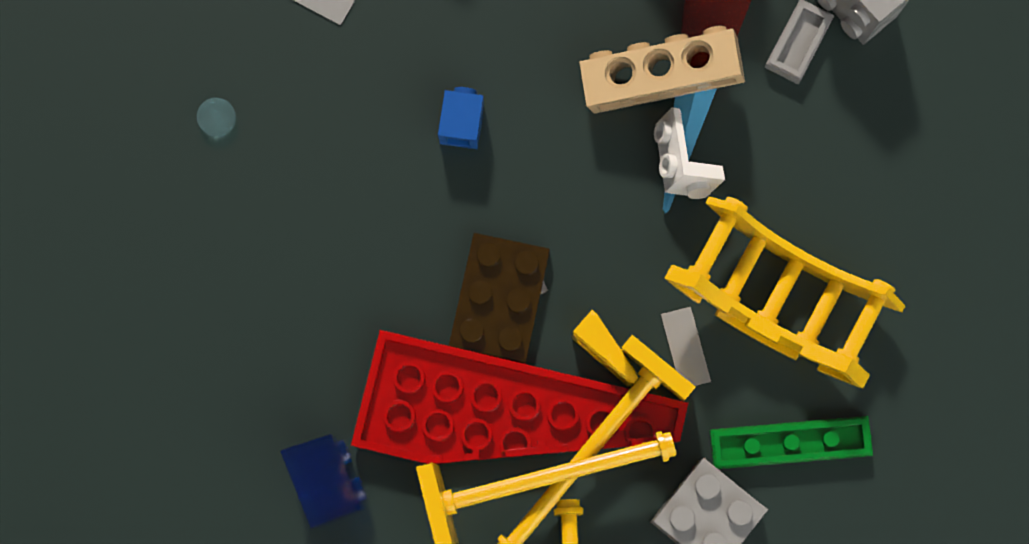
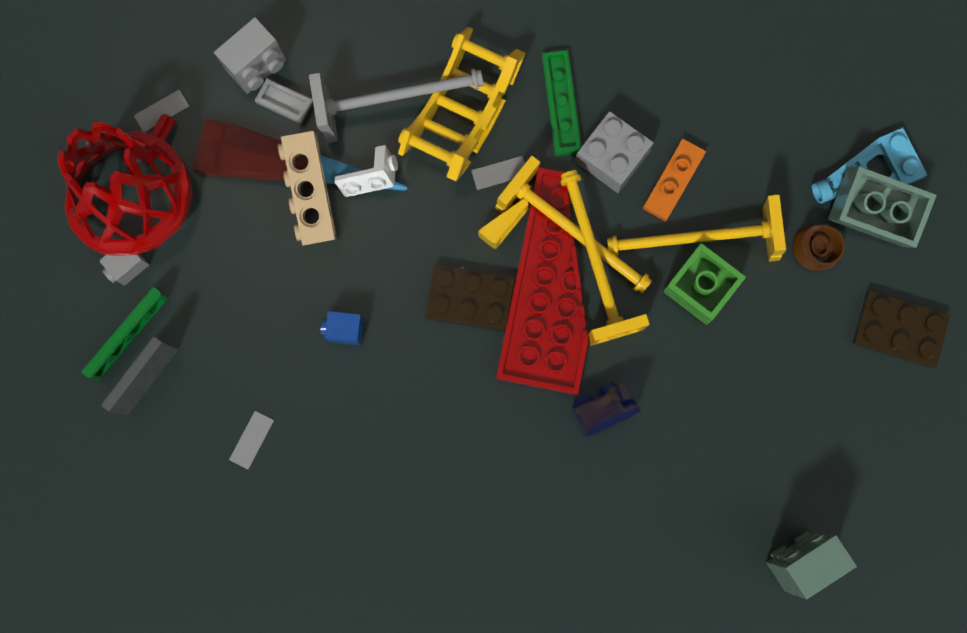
camera: 85 degrees left, 0 degrees up
(216, 117) = (343, 506): clear light blue piece -> none
(782, 95) = (326, 108): none -> light grey tile

